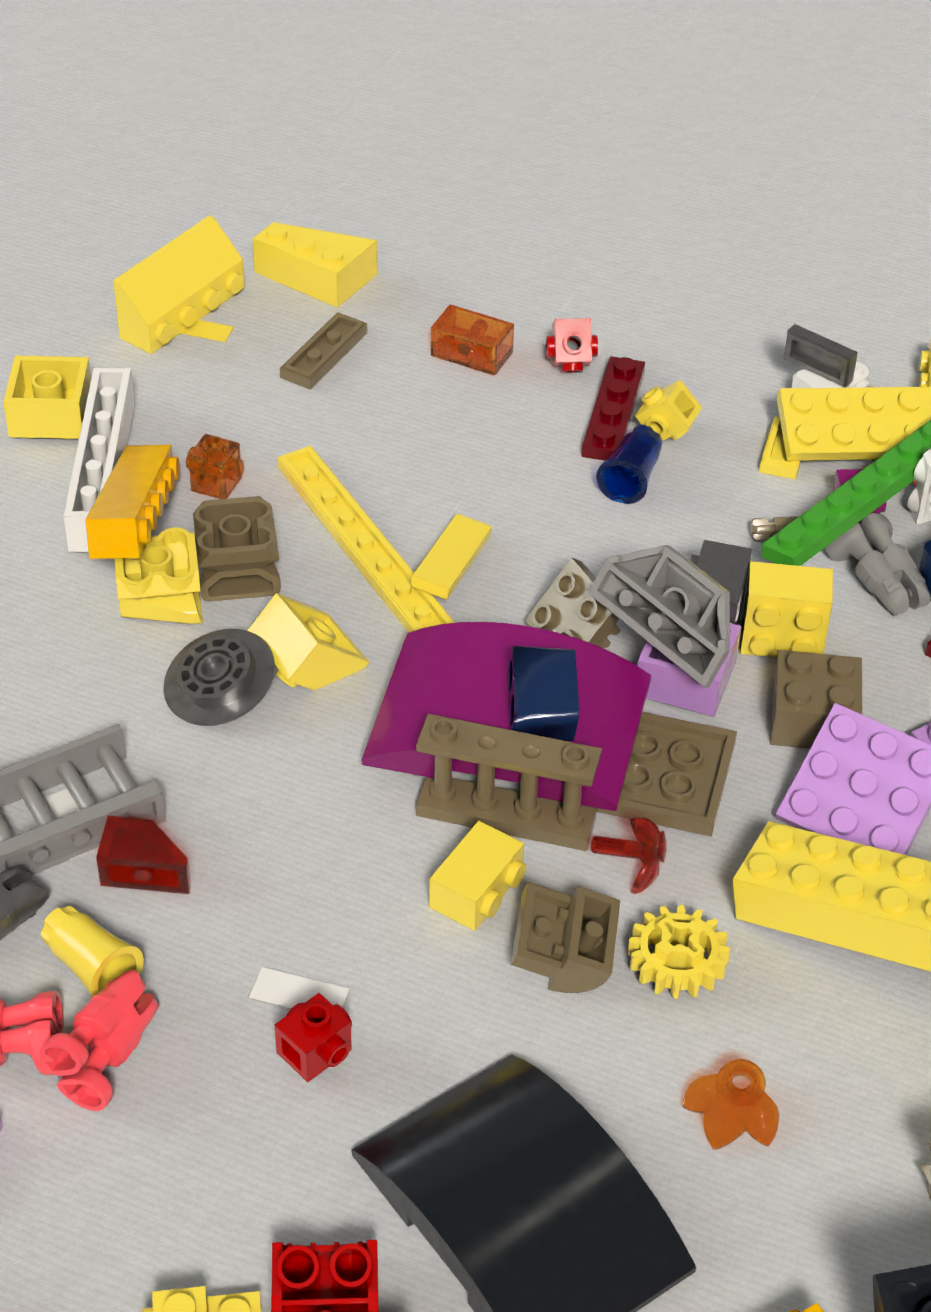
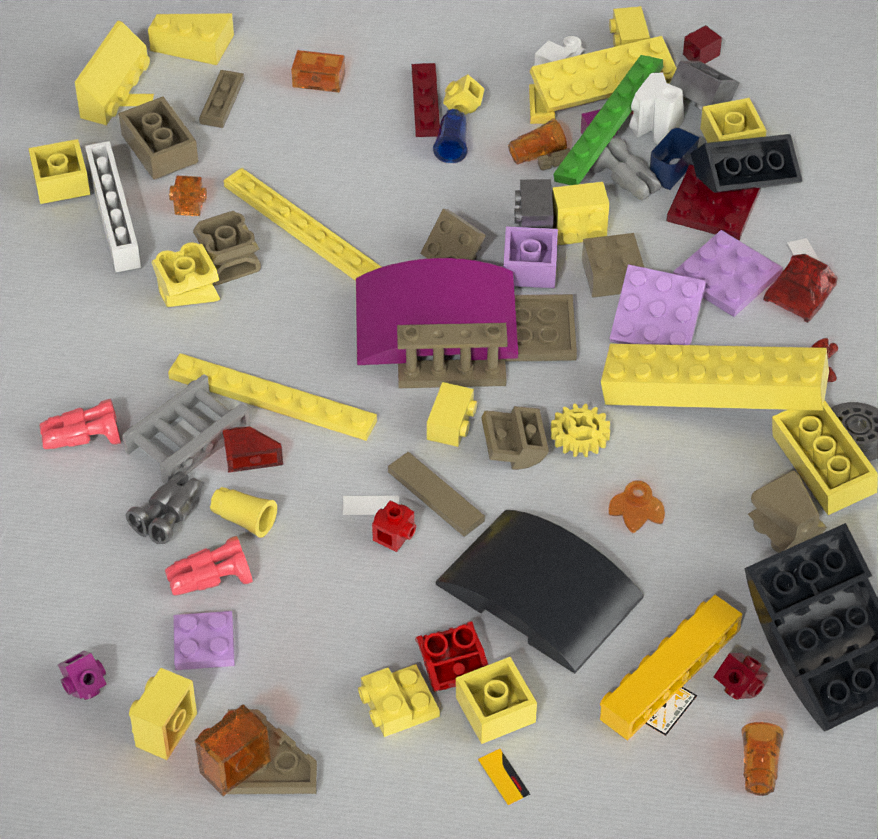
camera: 15 degrees left, 5 degrees up
(112, 1027) = (273, 555): coral piece -> none
(131, 501) = (155, 231): yellow brick -> none
(207, 381) = (158, 137): none -> dark tan brick
(222, 683) = (243, 325): flat silver wheel -> none
(223, 787) = (275, 397): none -> light yellow plate
(306, 644) = (292, 299): light yellow slope -> none
(409, 1001) = (436, 494): none -> dark tan tile
(451, 556) = (361, 222): light yellow tile -> none
(543, 692) = (460, 297): dark blue piece -> none
(576, 332) = (377, 60): brick -> none
(649, 849) = (544, 377): clear red plant -> none
(670, 607) = (517, 228): light grey wedge -> none
(758, 497) = (538, 142): none -> clear orange plant
(820, 355) = (549, 38): flat silver tile -> none

